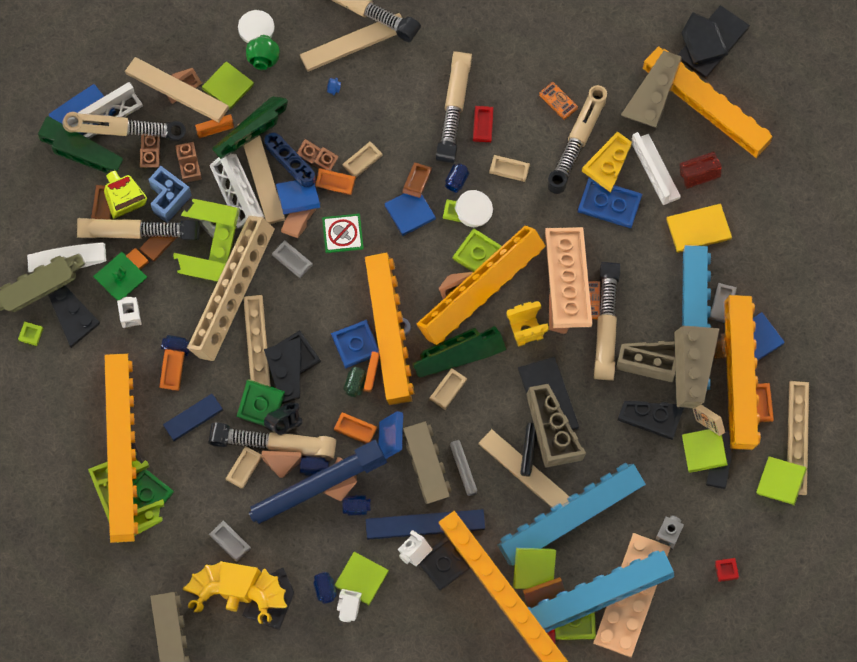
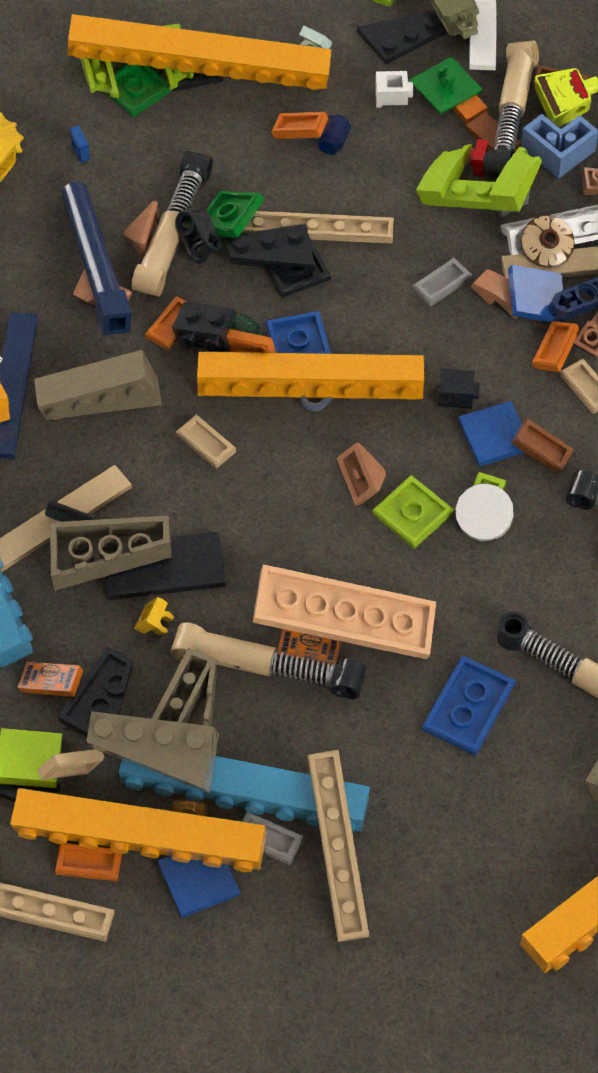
camera: 100 degrees right, 10 degrees down
(87, 373) = (314, 39): none -> light aqua tile
(184, 246) = (476, 157): none -> red plate
(192, 417) = (230, 145): dark blue tile -> none
(210, 520) = (79, 144): none -> blue tile
(230, 541) = (48, 166): light grey tile -> none
(231, 288) = (490, 231): tan brick -> none
(244, 467) = (145, 190): tan tile -> none
(250, 196) = (543, 252): none -> tan dish
(312, 465) = (125, 263): clear blue brick -> none
(342, 233) = (467, 337): piece -> none
(356, 505) = (58, 304): clear blue brick -> none
(362, 400) = (204, 326): none -> black bracket
(382, 236) = (457, 388): none -> black brick
(391, 434) = (151, 350): blue tile -> none
(457, 177) = (539, 497): clear blue brick -> none
(459, 351) = (260, 463): dark green wedge -> none
(463, 468) = (82, 441): light grey axle -> none
(481, 285) = (356, 500): light orange brick -> none
(509, 168) = (548, 575): tan tile -> none
(523, 316) = (291, 544): yellow piece -> none
(589, 396) = (151, 616): none -> yellow tile
(608, 161) = (538, 710): yellow wing -> none
(647, 448) = (50, 679): none -> tile
(655, 168) = (518, 777): white fence -> none
(699, 227) = (404, 828): yellow tile -> none
(700, 169) = (504, 843): clear red hinge -> none
(725, 257) = (338, 846): none -> tan tile

